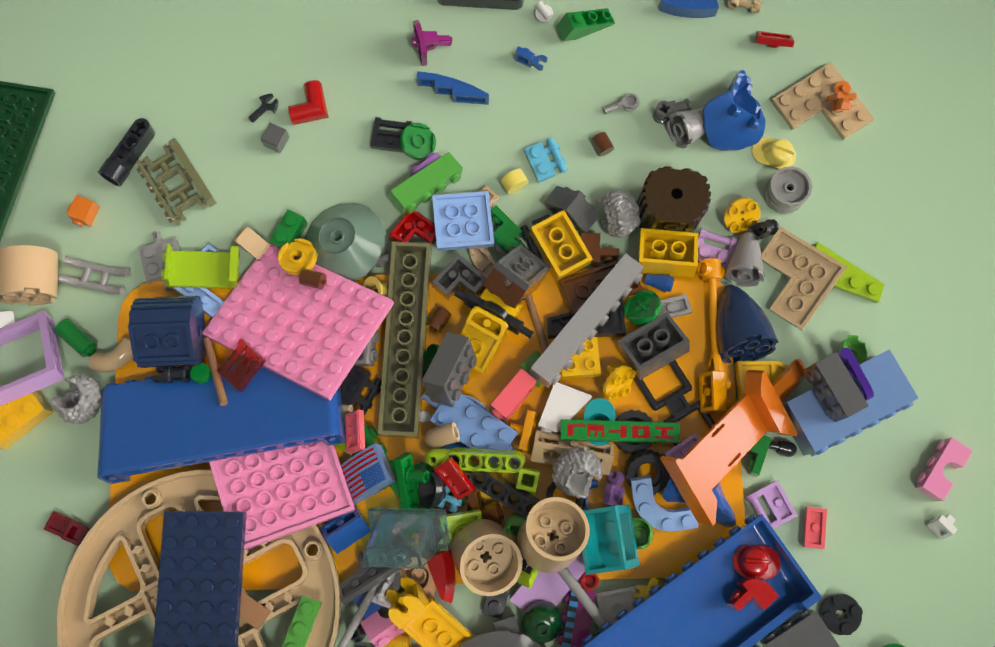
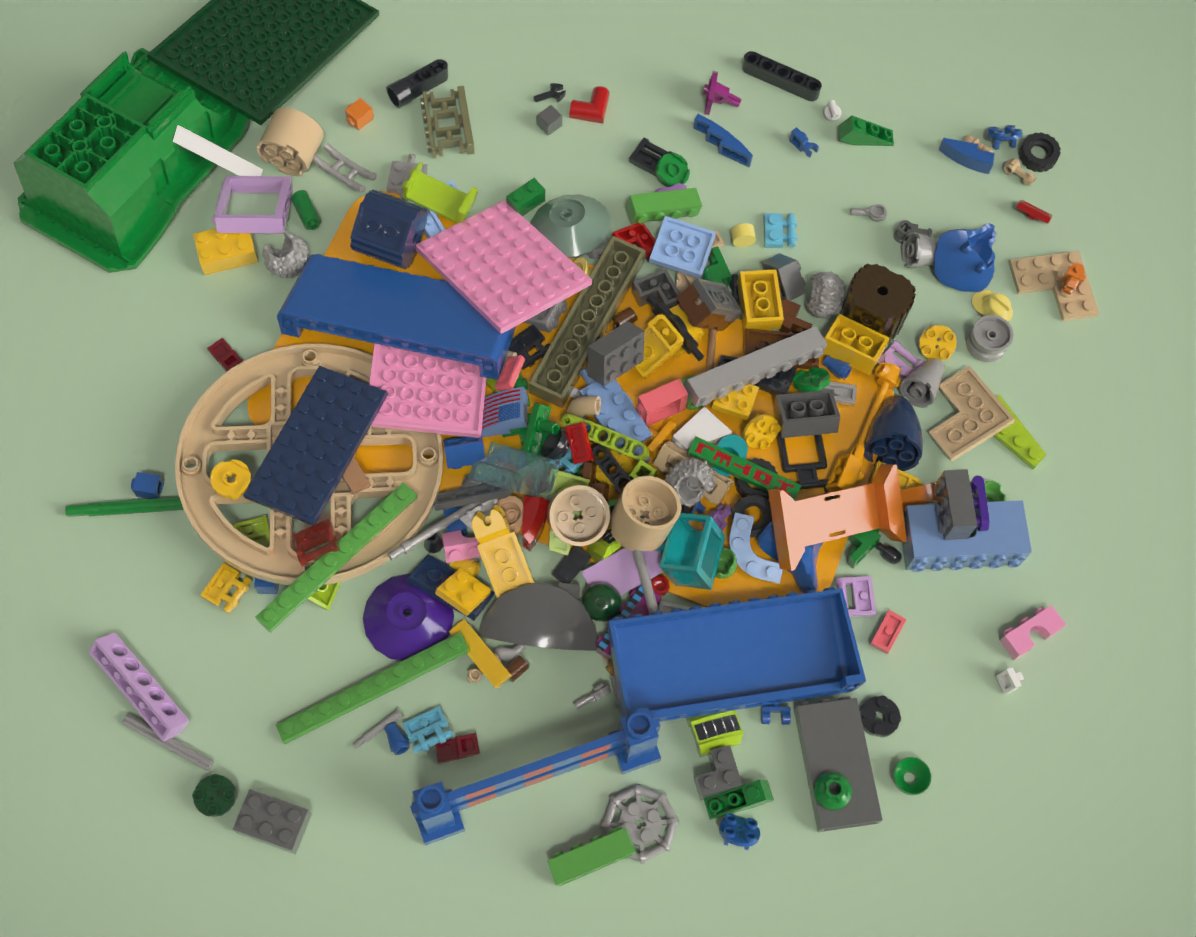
camera: 20 degrees right, 10 degrees down
(112, 360) = (330, 238): tan cylinder -> none
(170, 374) = (375, 263): black piece -> none
(200, 373) = (400, 273): green tile -> none
(216, 376) = (413, 276): medium nougat bar -> none
(245, 368) = (438, 278): clear red plate -> none
(251, 242) = (490, 192): tan slope -> none
(288, 251) = (531, 218): yellow plate -> none
(312, 279) = (530, 236): reddish brown piece -> none
(602, 143) = (837, 236): reddish brown piece -> none
(752, 590) = (806, 648): red brick -> none
(756, 562) = (819, 631): red piece -> none
(764, 229) = (951, 361): black piece -> none

